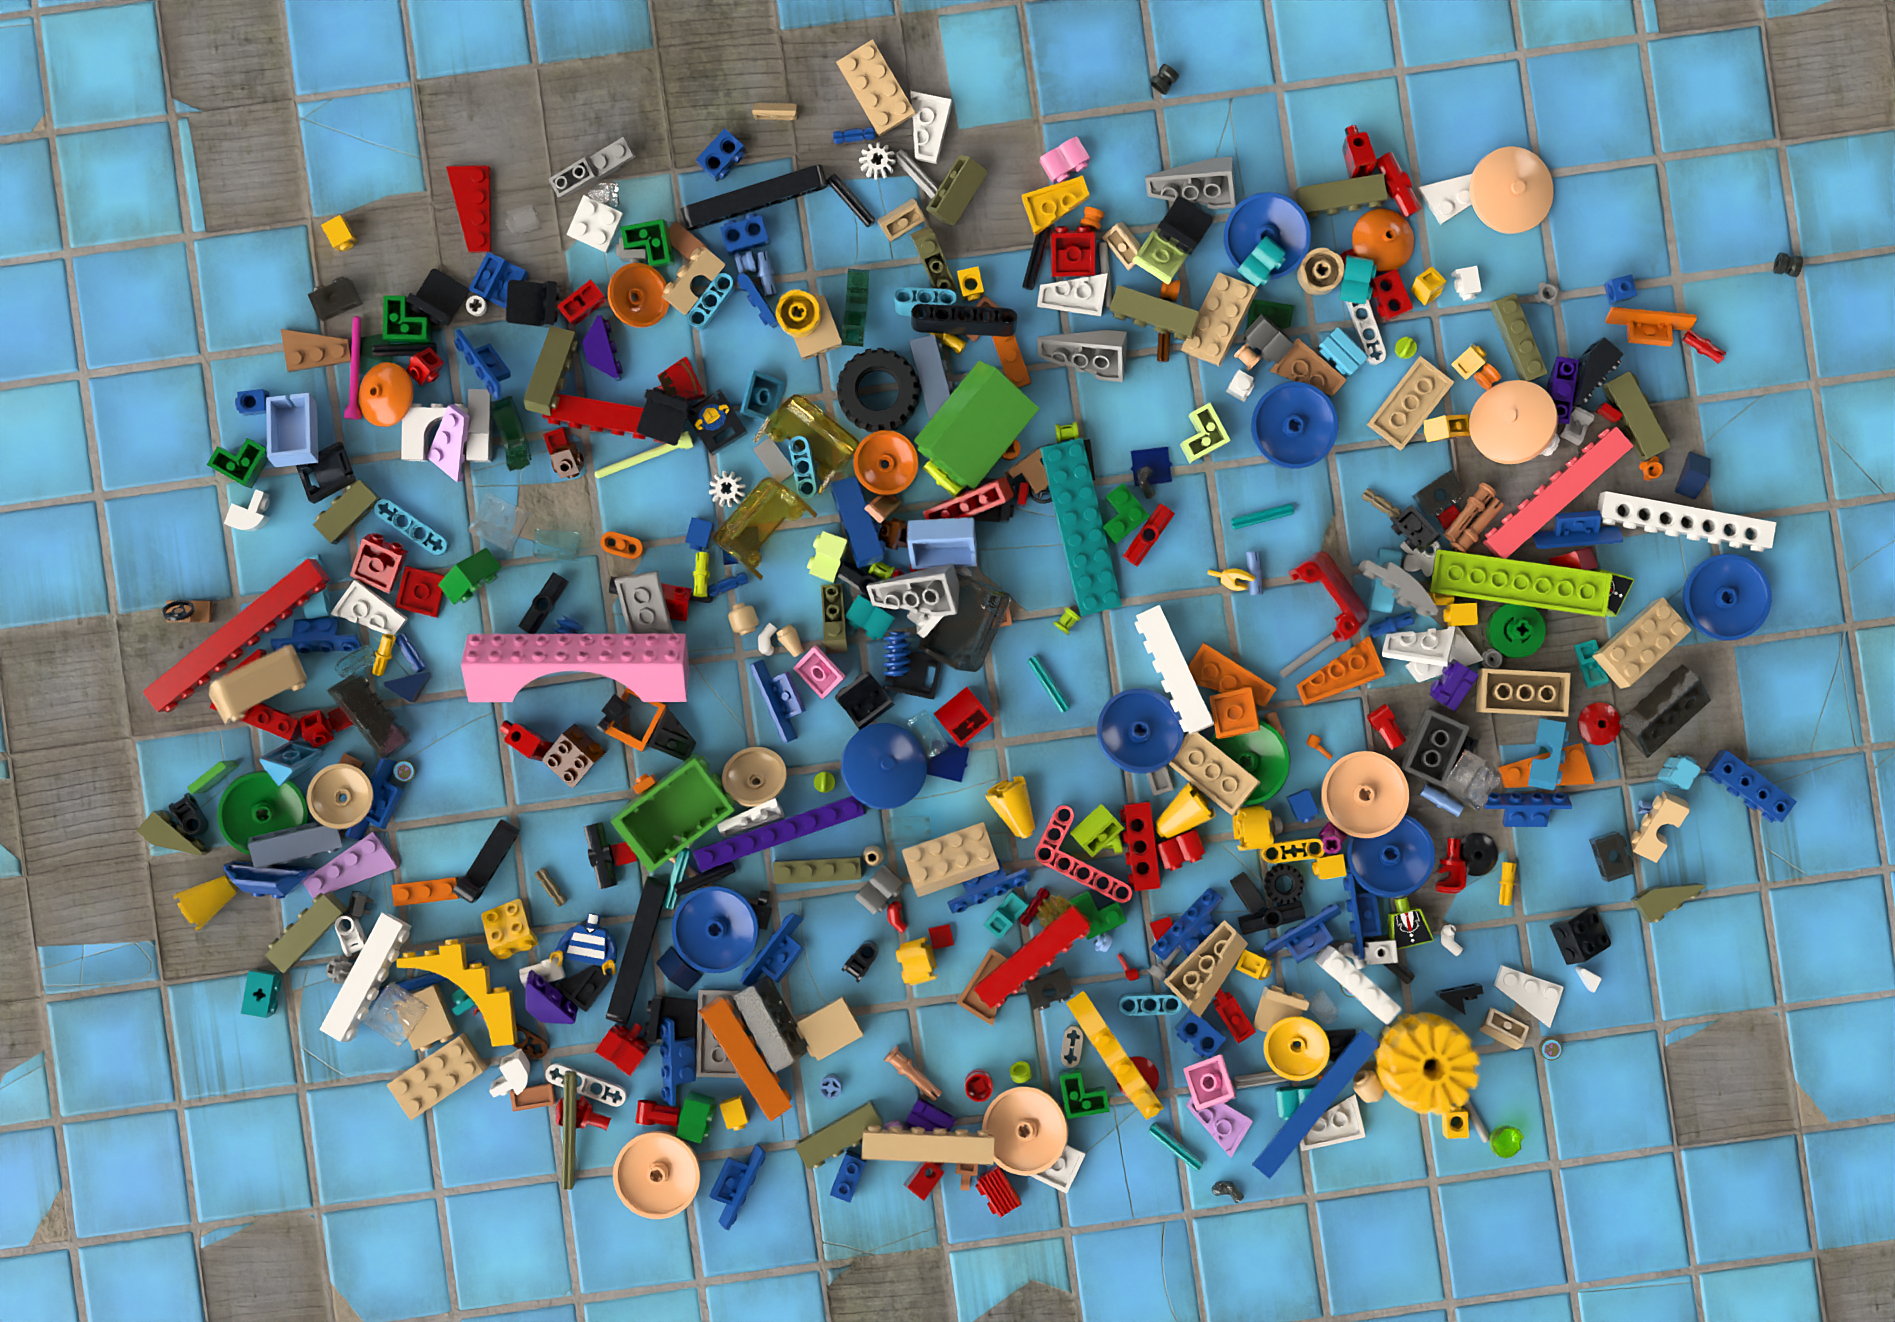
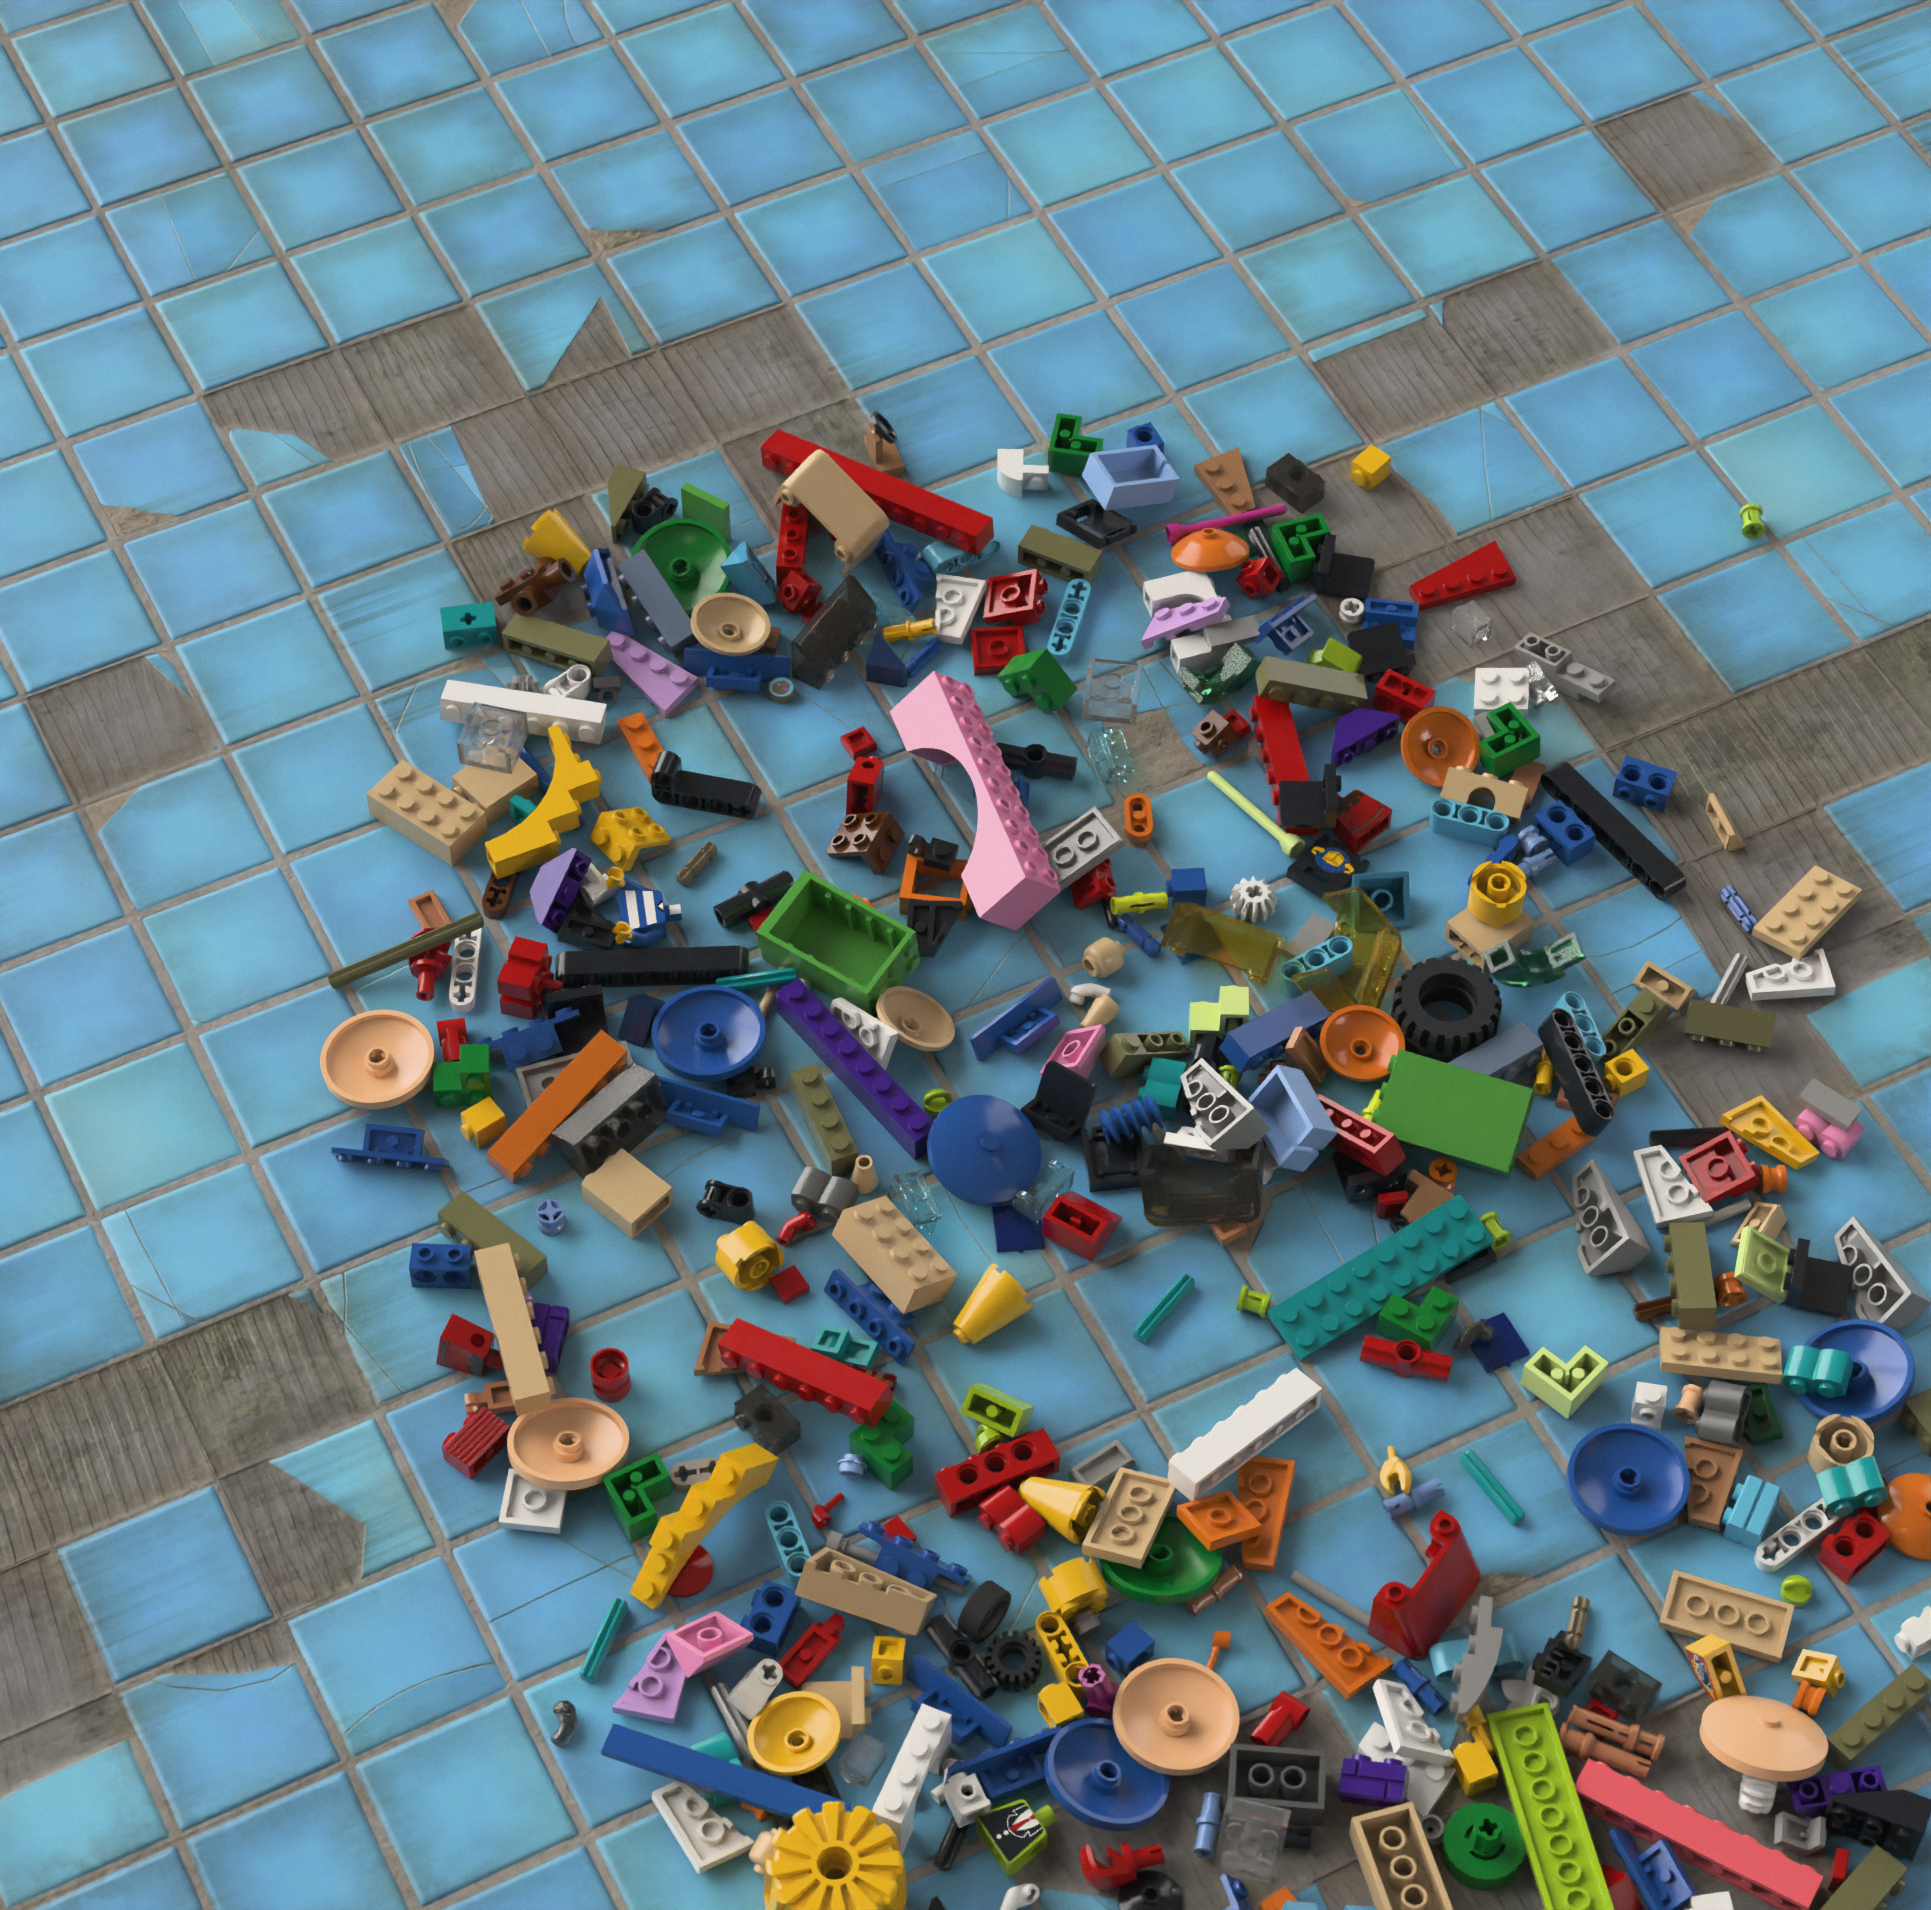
camera: 70 degrees right, 35 degrees down
(243, 932) = (536, 586): none -> reddish brown brick
(476, 729) = (858, 743): none -> red tile
(515, 1074) = (458, 886): white brick -> none
(527, 342) = (1336, 657): none -> lime slope
(704, 878) = (768, 1007): black axle -> none
(851, 200) = (1660, 928): black axle -> none
(868, 160) = (1721, 937): white gear -> none
(905, 1067) = (604, 1291): nougat pin -> none
(1020, 1072) = (643, 1422): lime tile -> none
(1055, 153) = (1829, 1105): none -> light grey tile
(1075, 864) = (940, 1402): coral beam -> none
(1139, 731) = (1145, 1417): blue dish -> none
(1251, 1063) = (755, 1688): none -> white piece
(1428, 285) = (1890, 1582): yellow brick -> none

